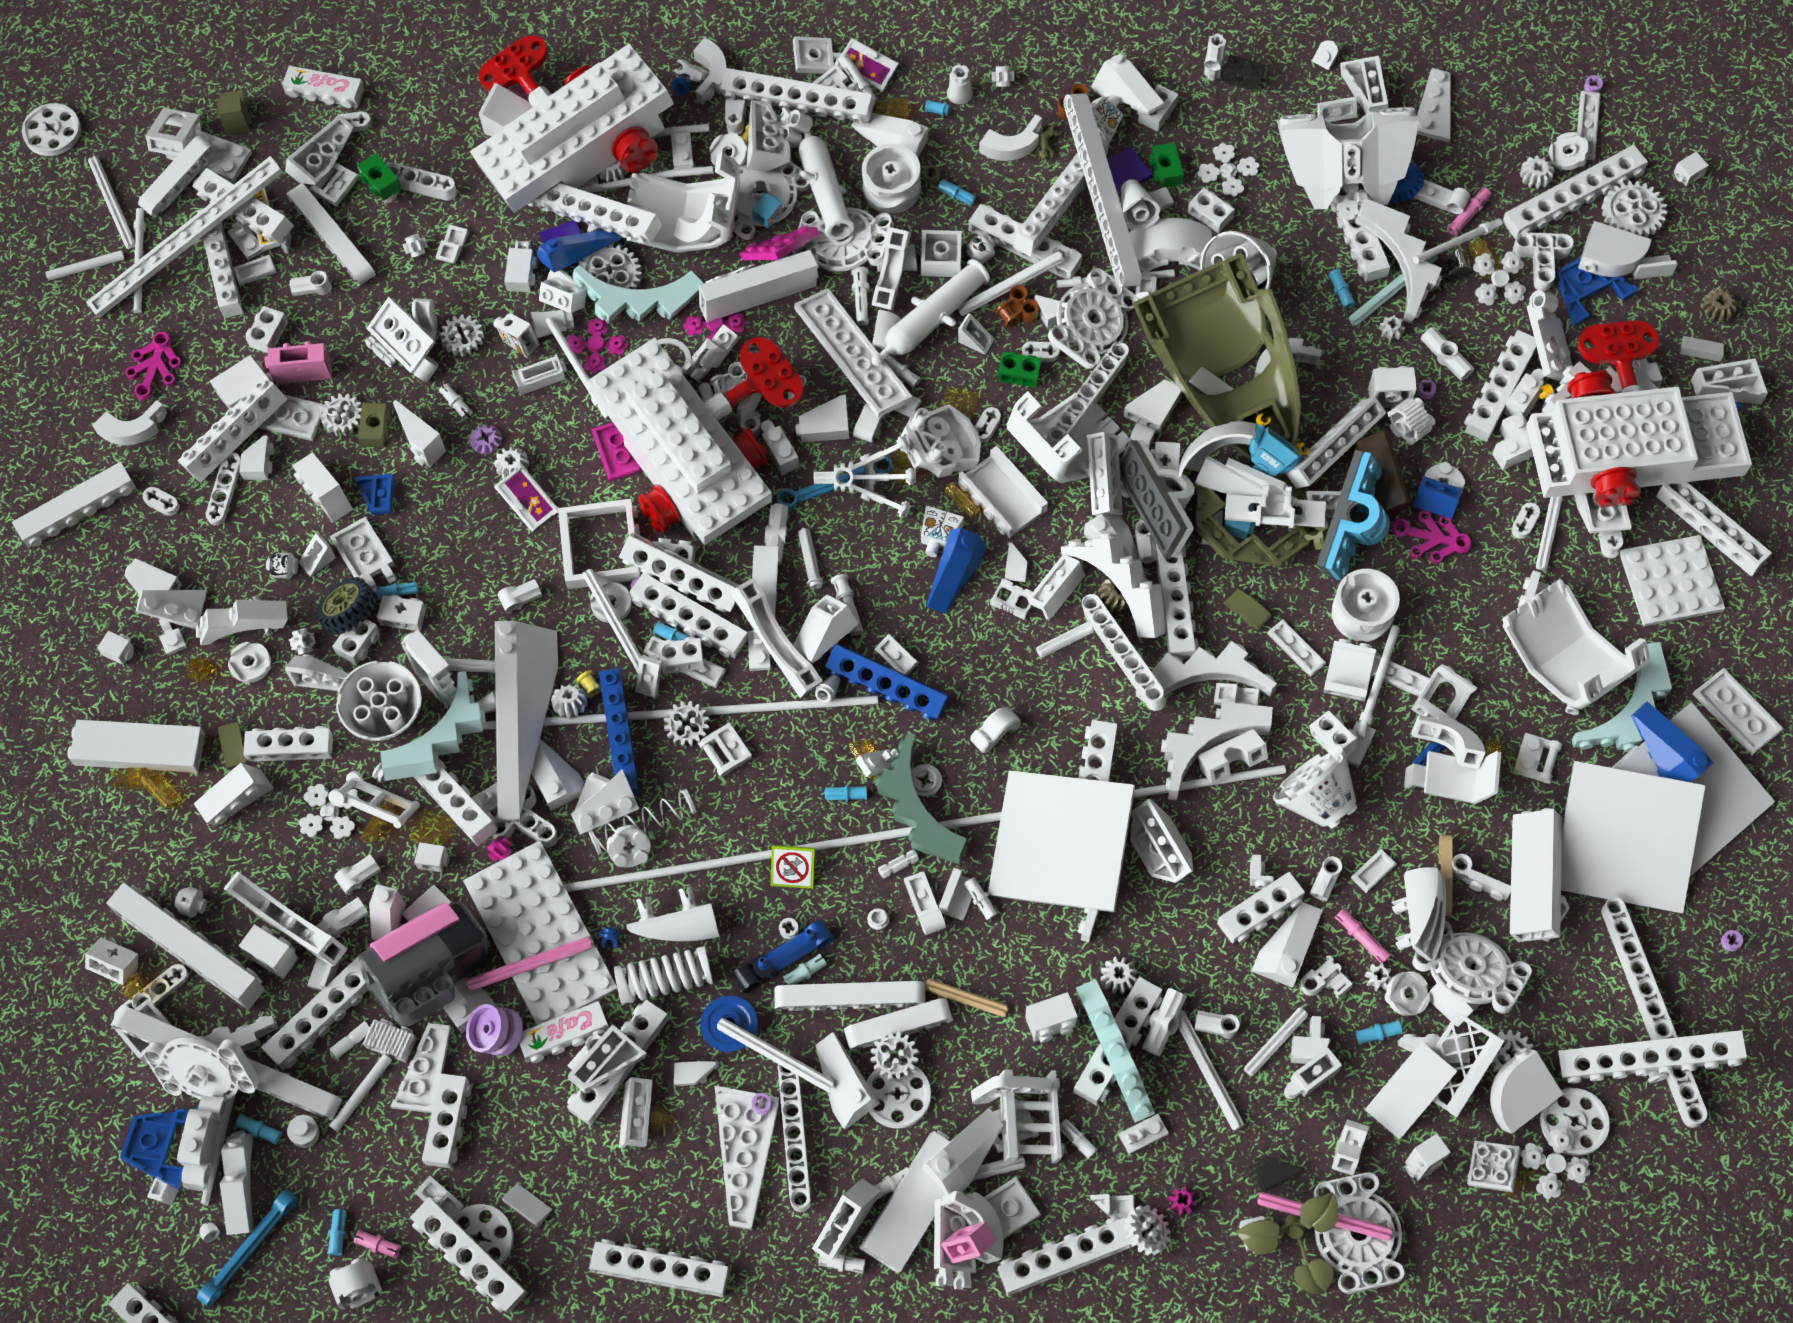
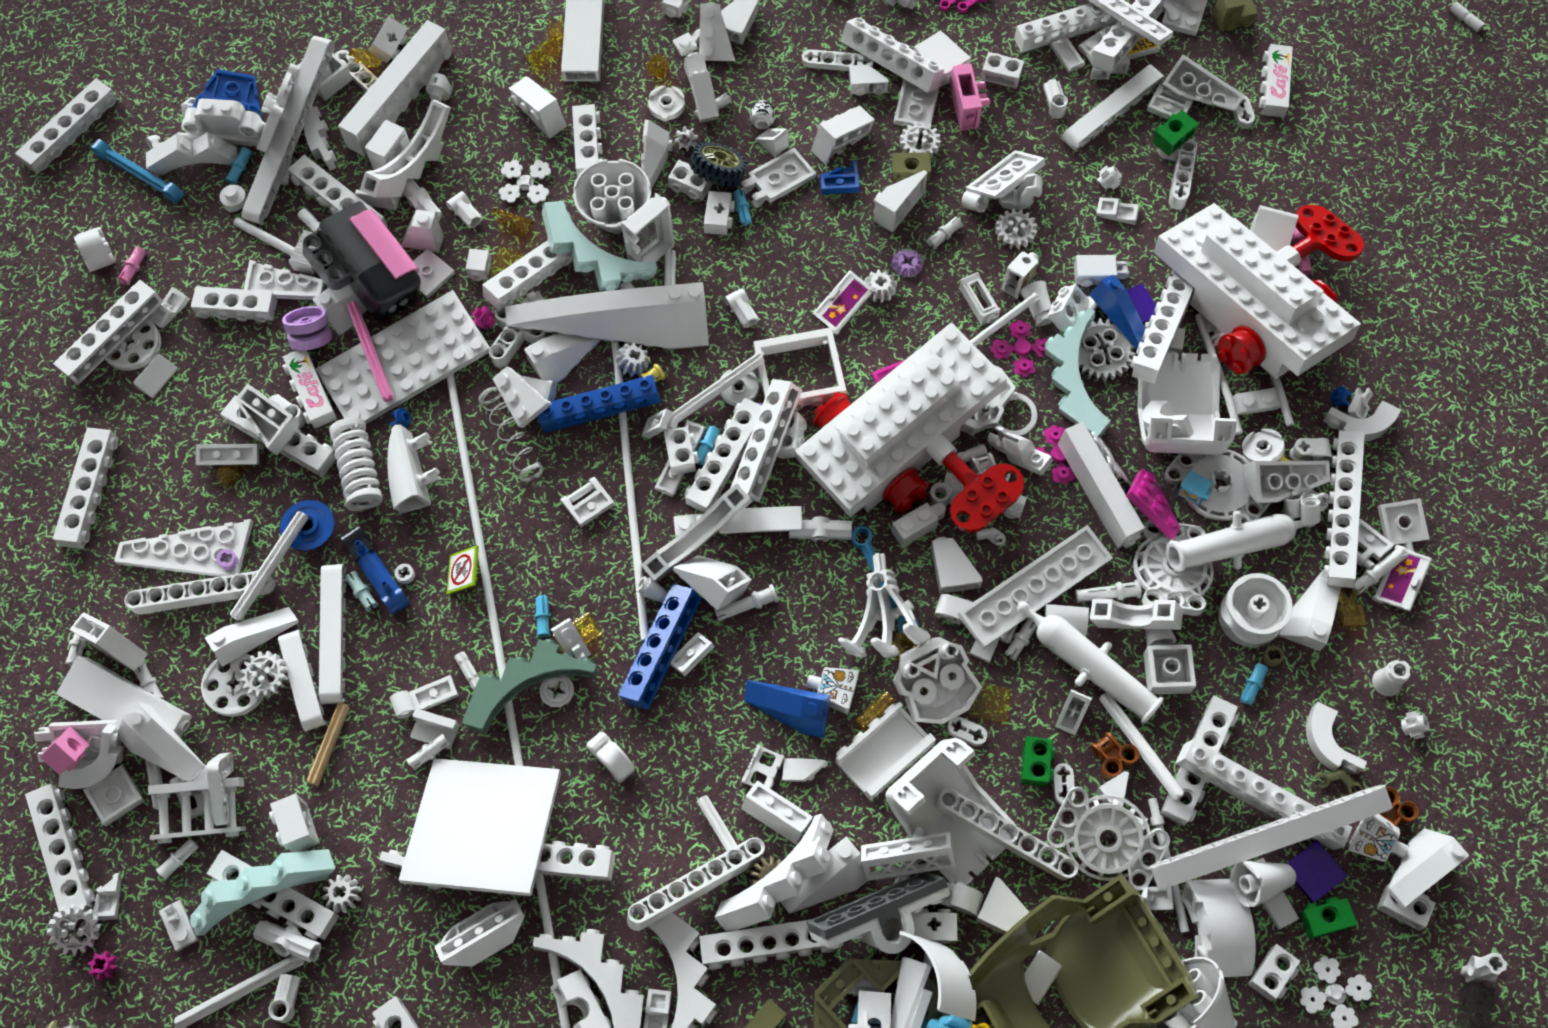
camera: 85 degrees right, 0 degrees up
(159, 504) = (817, 14): white beam -> none
(232, 744) = (591, 96): olive slope -> none
(337, 1232) = (144, 235): medium azure axle -> none
(355, 780) = (553, 196): white piece -> none
(381, 351) = (995, 160): white axle -> none
(634, 856) = (483, 432): white plate -> none
(675, 726) = (600, 466): white gear -> none
(692, 1072) = (266, 499): white slope -> none
(814, 580) = (796, 564): white axle -> none
(878, 919) = (411, 655): white plate -> none
(937, 108) = (1360, 657): medium azure pin -> none
(981, 248) = (1183, 712): white head -> none
(1145, 544) = (829, 904): white piece -> none

